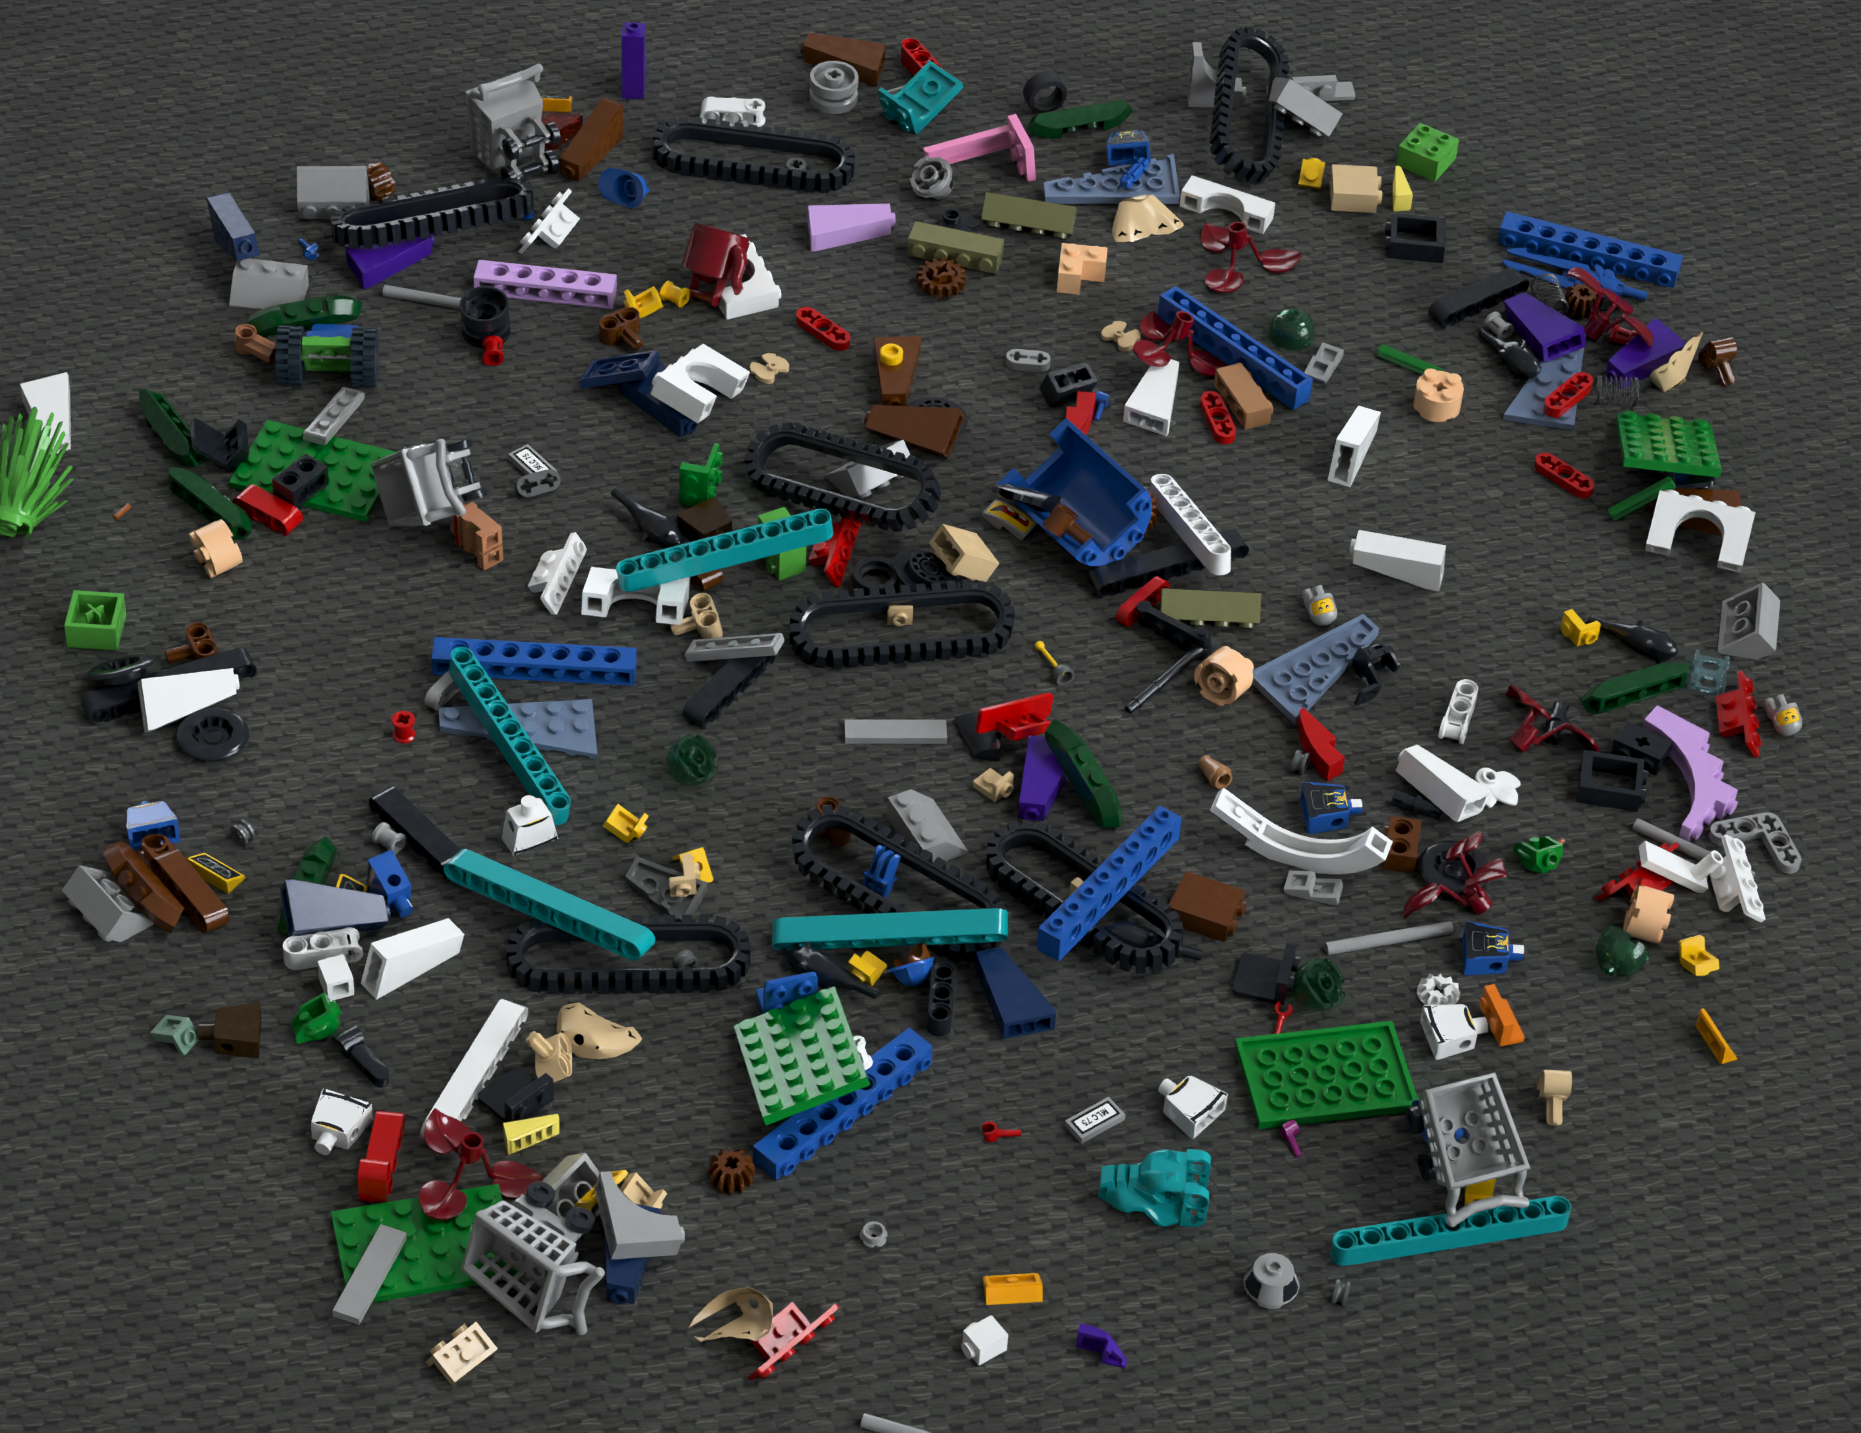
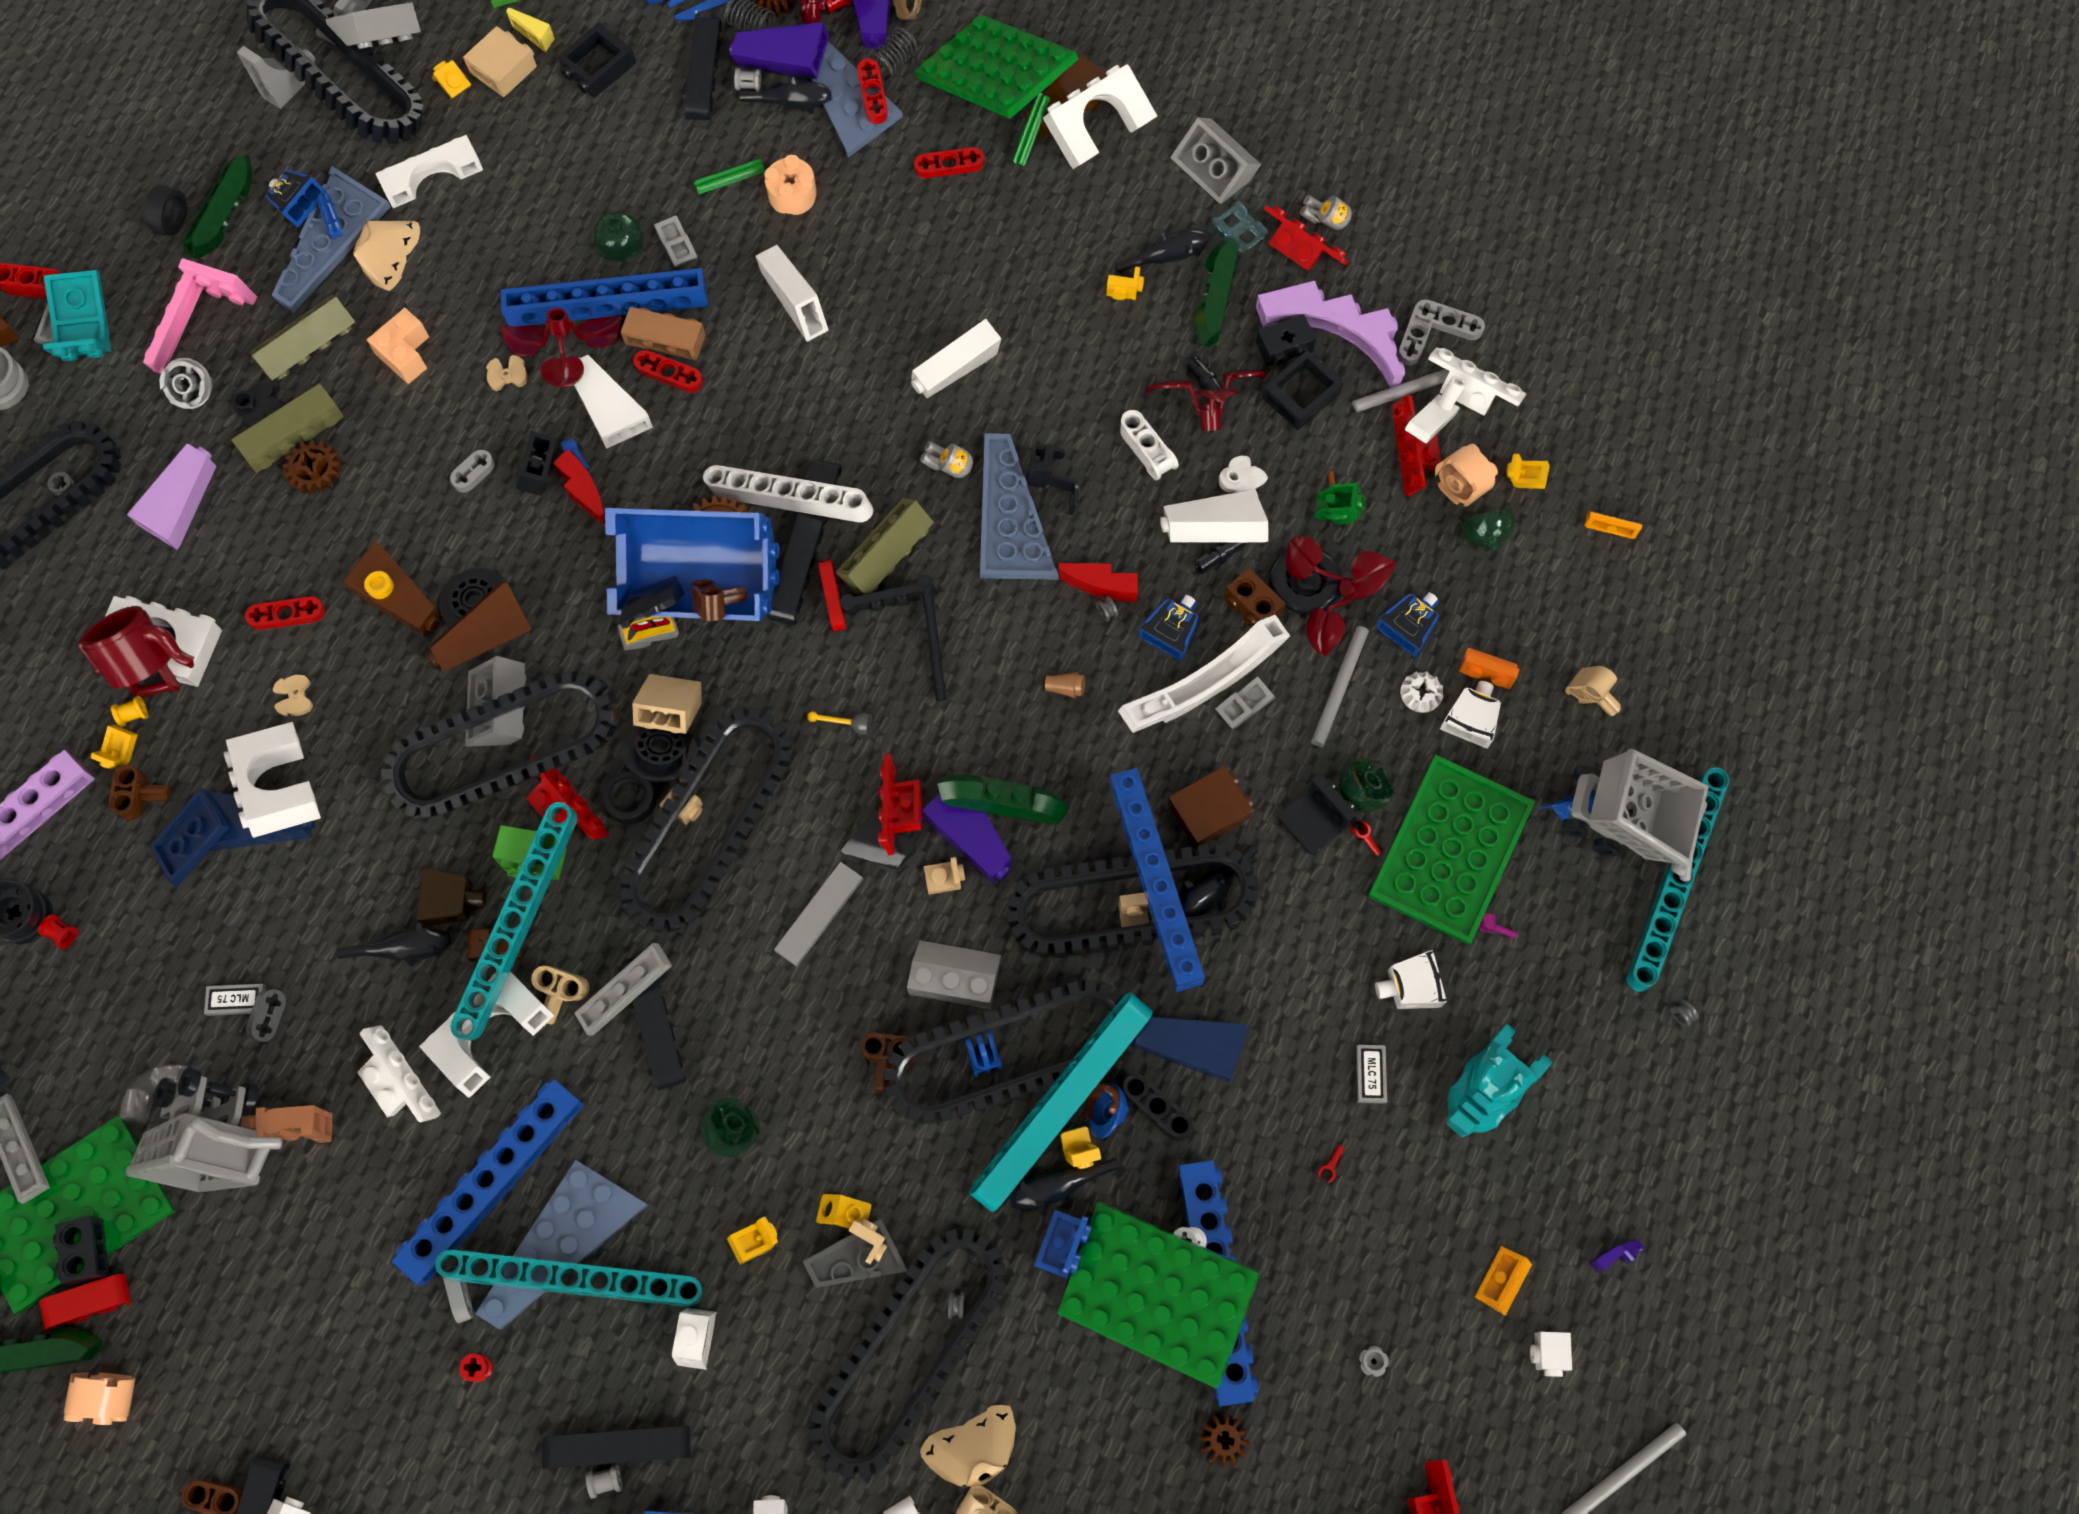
camera: 50 degrees left, 25 degrees up
(549, 904) = (811, 1396): teal beam -> none
(699, 482) = (398, 873): green bracket -> none
(1221, 671) = (974, 597): light nougat brick -> none
(1235, 236) = (461, 207): dark red plant -> none
(1271, 1281) = (1638, 1061): light grey cone -> none

